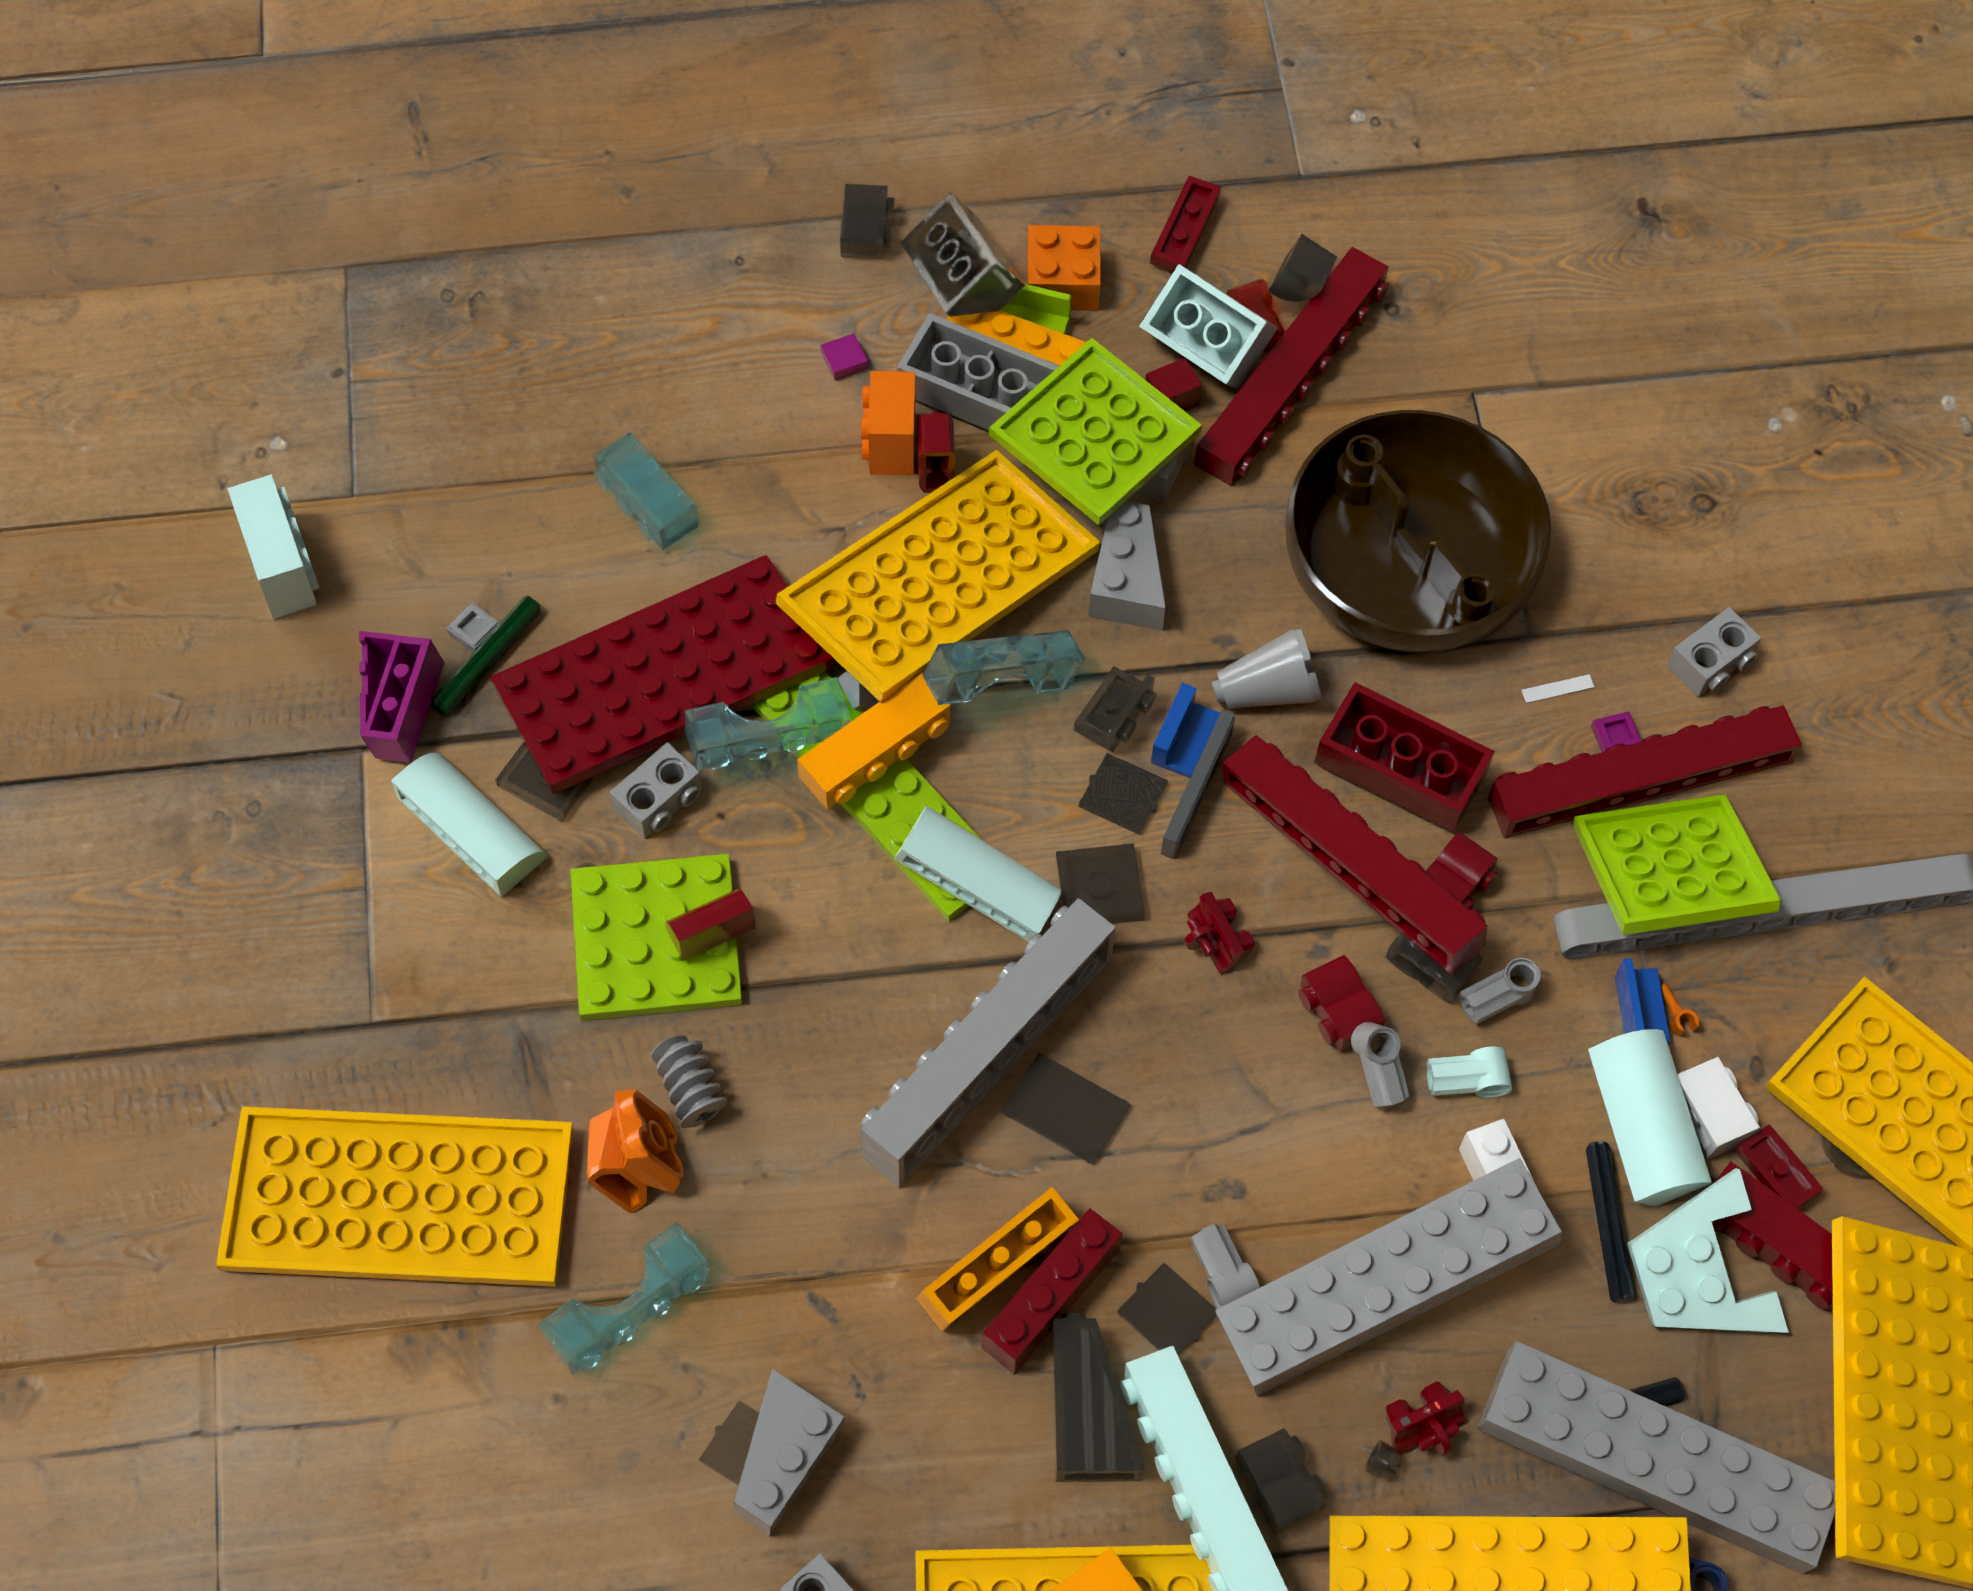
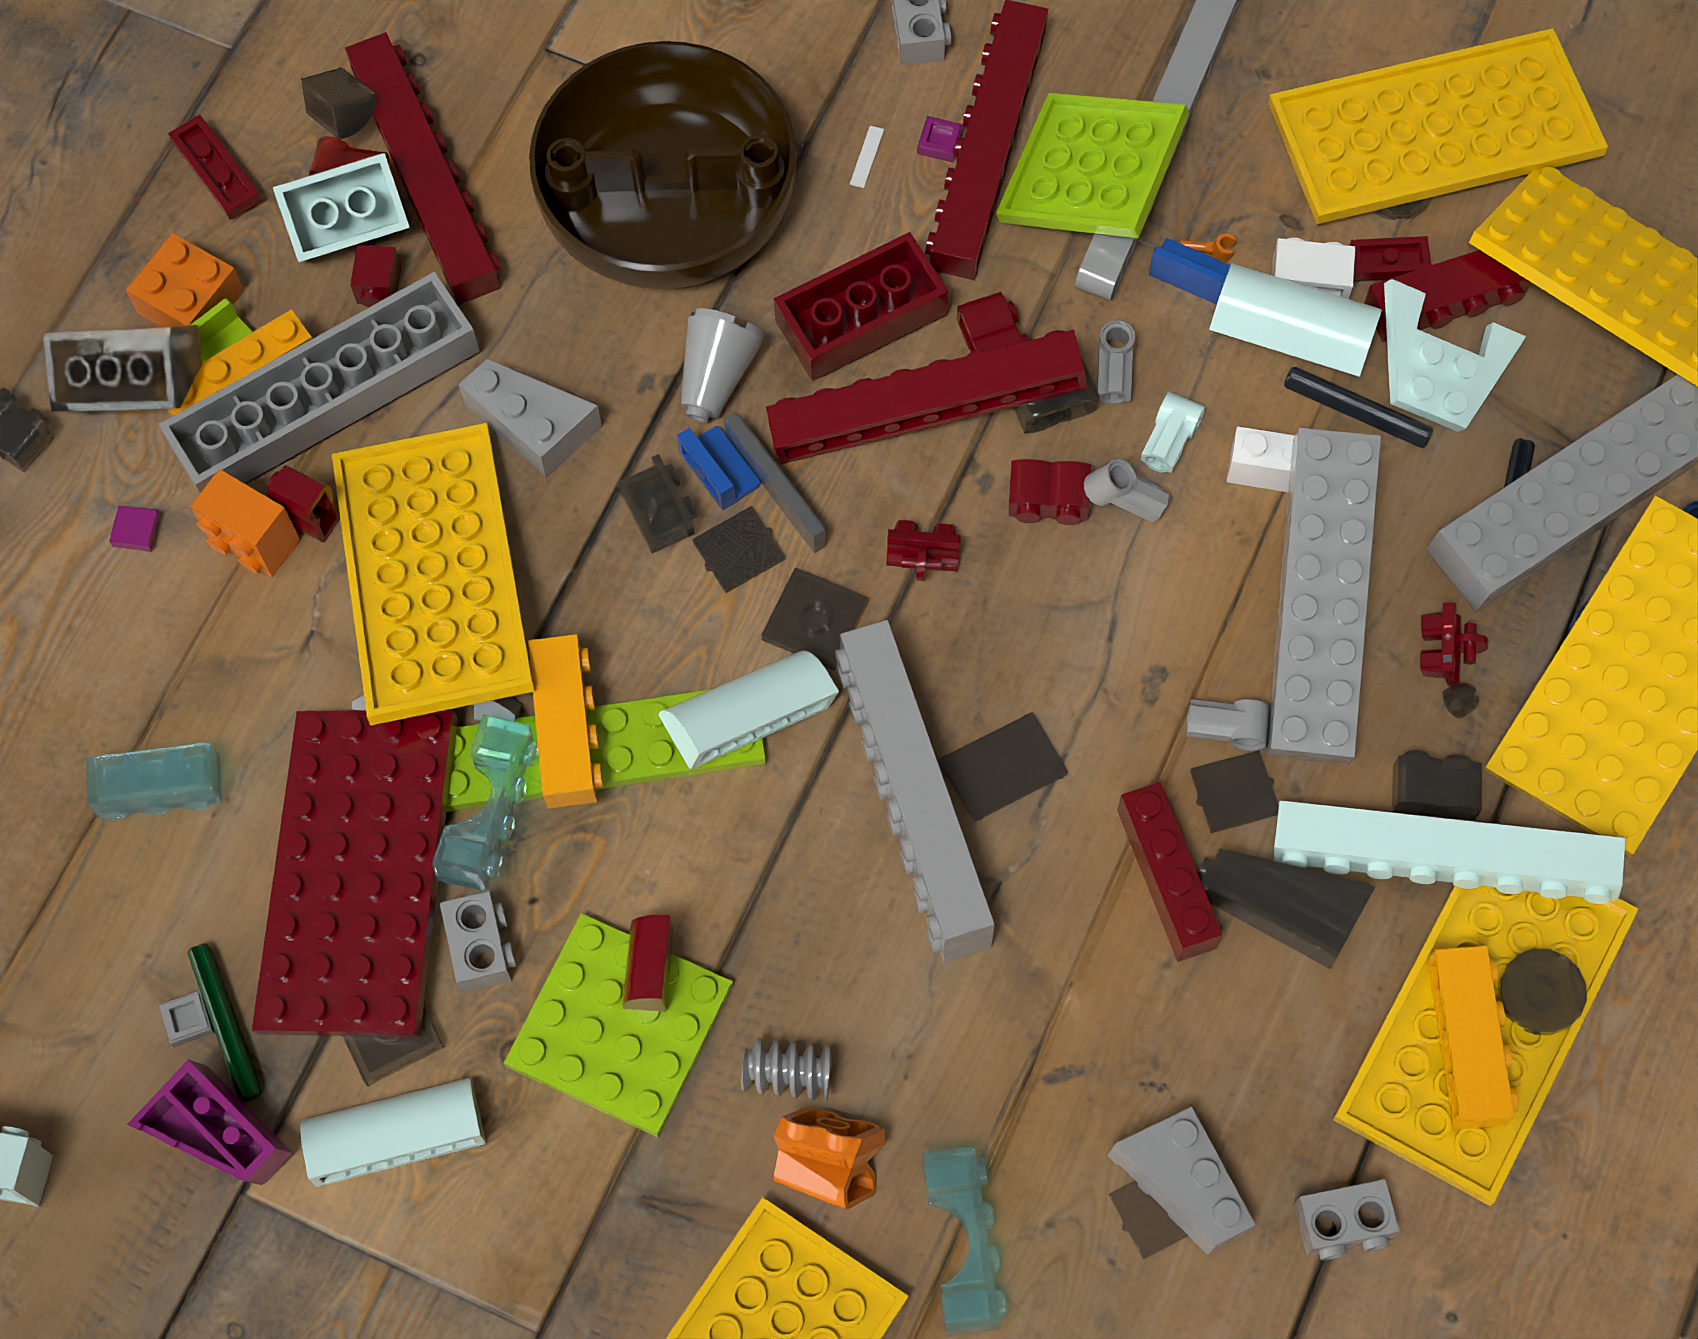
camera: 55 degrees left, 5 degrees up
(968, 667) = (555, 594): clear light blue arch -> none
(996, 1259) = (1117, 899): light orange brick -> none
(1095, 431) = (387, 356): lime plate -> none

